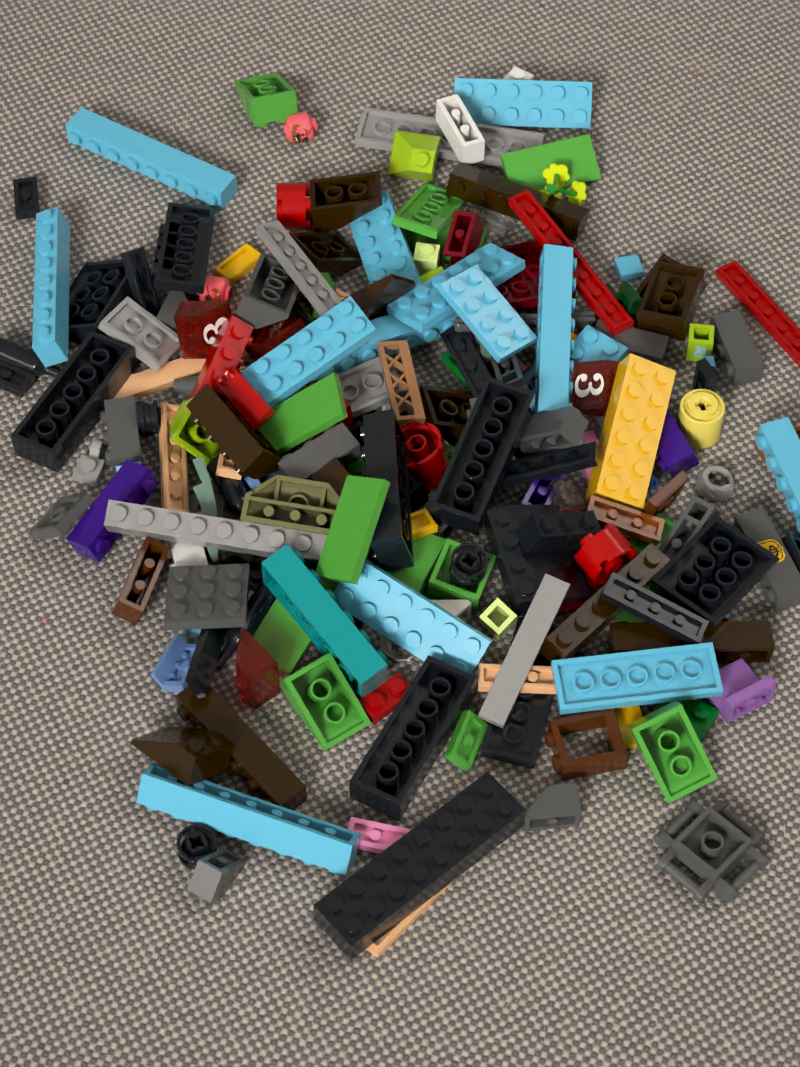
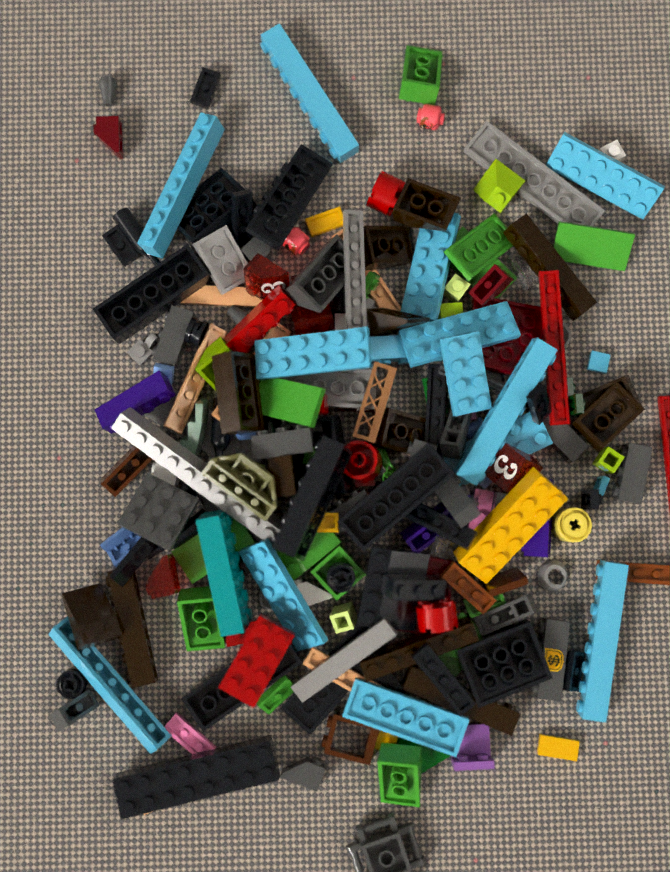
camera: 25 degrees right, 30 degrees up
(61, 516) = (100, 388): dark grey plate -> none
(244, 397) = (257, 365): red hinge -> none
(352, 529) = (267, 527): bright green tile -> none
(420, 687) = (257, 660): none -> red brick
(460, 129) = (541, 184): white brick -> none
(556, 177) = (580, 271): neon yellow plant -> none
(586, 307) = (538, 404): none -> black plate

